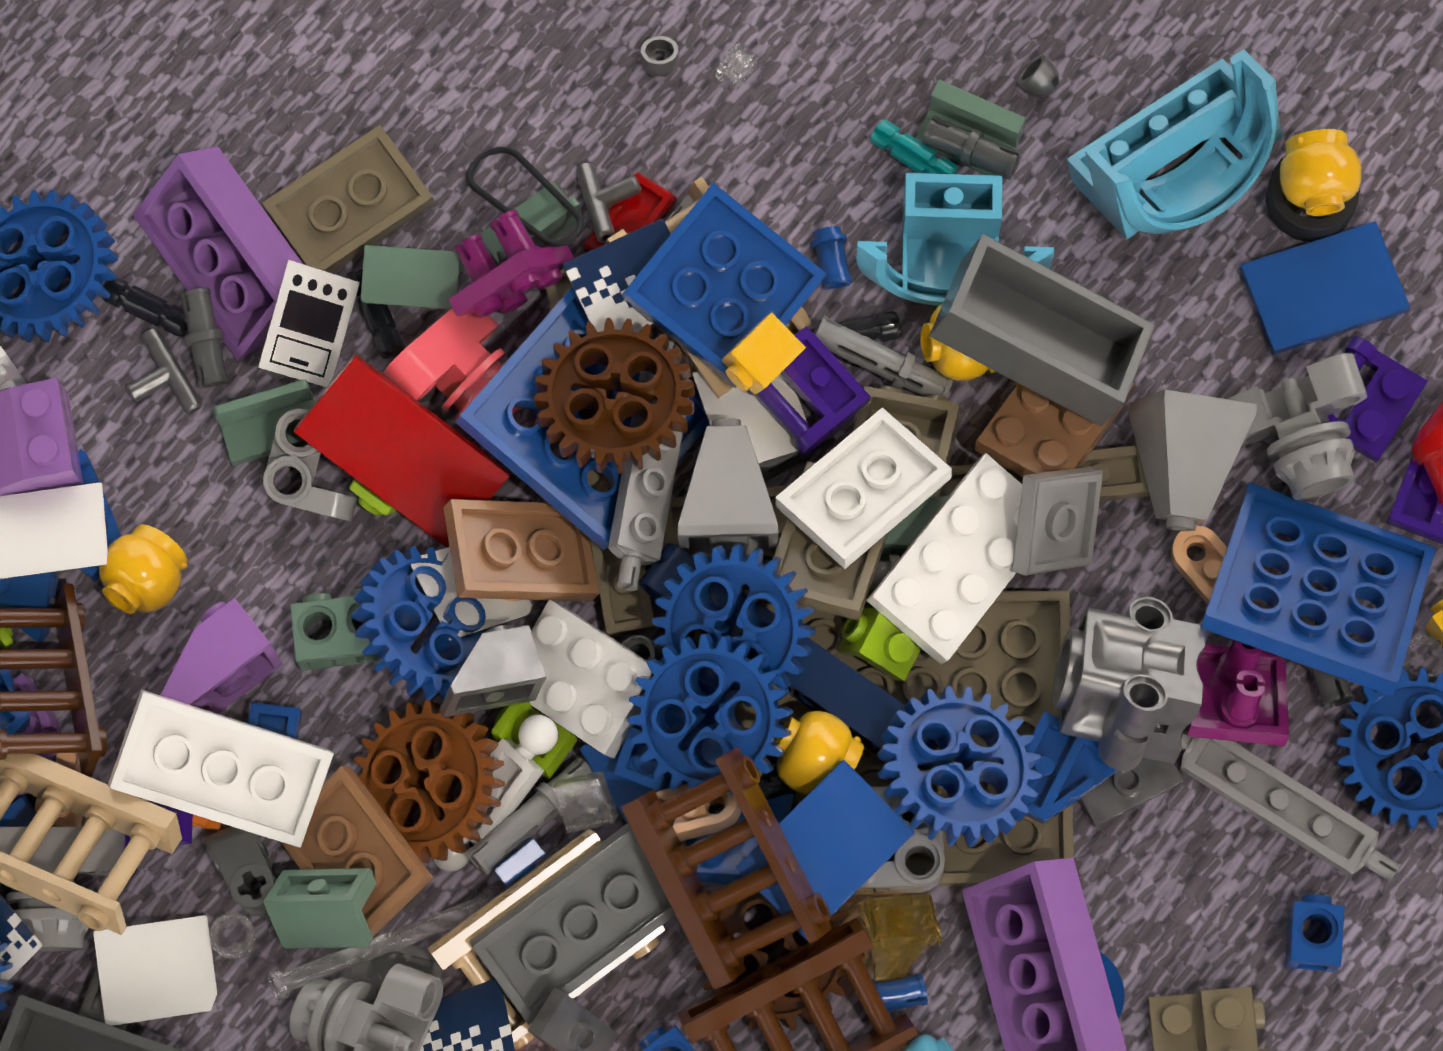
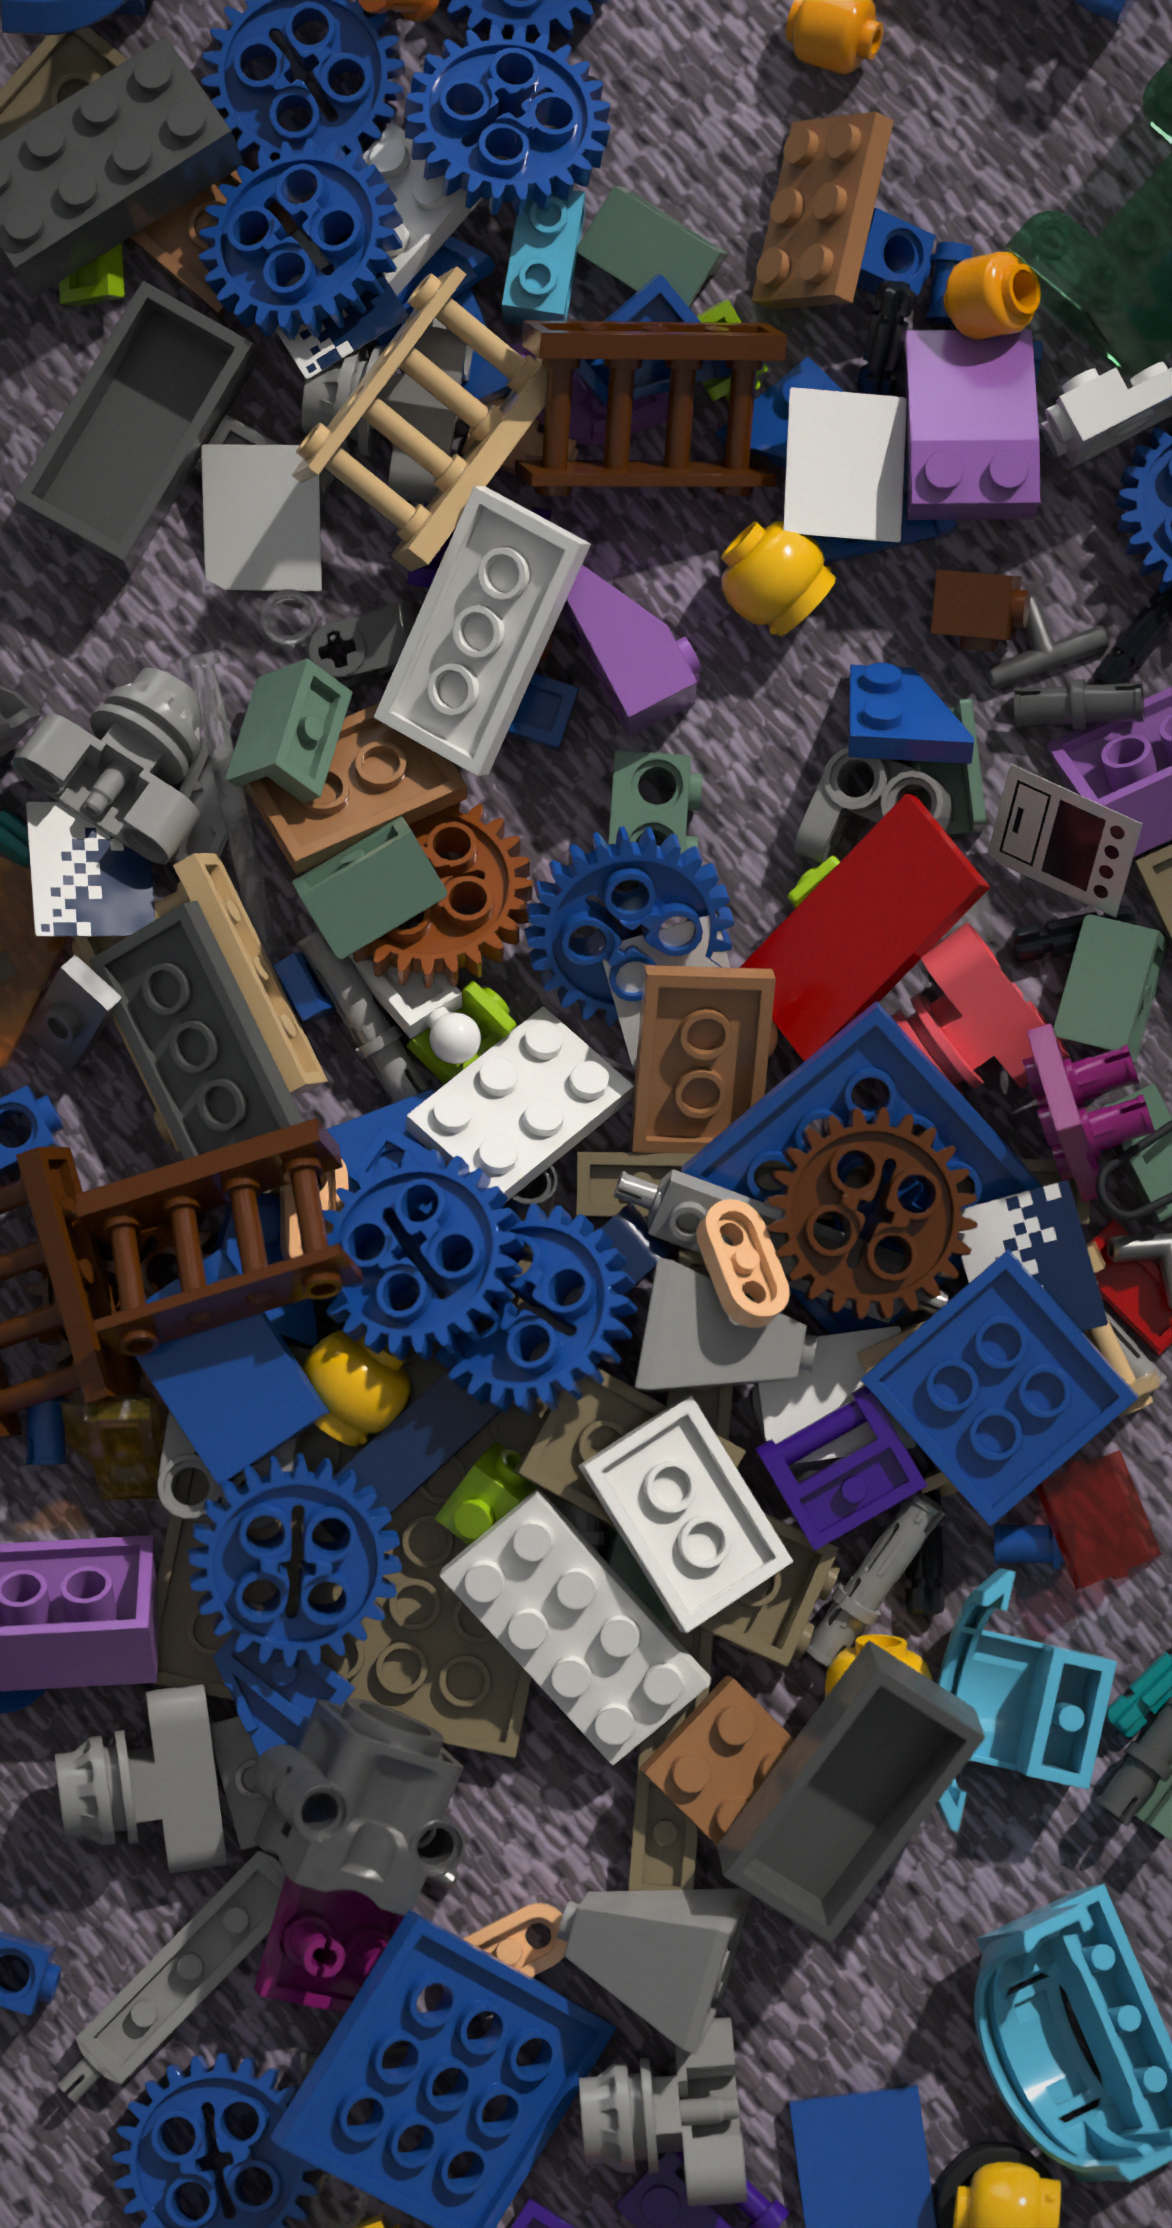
camera: 100 degrees right, 10 degrees up
(142, 419) = (979, 608): none -> reddish brown brick
(236, 458) = (902, 718): none -> blue wing
(433, 816) = (370, 888): none -> sand green panel
(497, 673) = (540, 998): slope -> none
(585, 802) = (359, 1082): clear plate -> none
(670, 474) = (746, 1266): none -> light nougat plate
(761, 355) = (885, 1415): yellow brick -> none
(808, 212) = (1098, 1520): none -> clear red piece
(1057, 520) = (602, 1760): light grey tile -> none
(1146, 837) = (171, 1781): none -> light grey beam

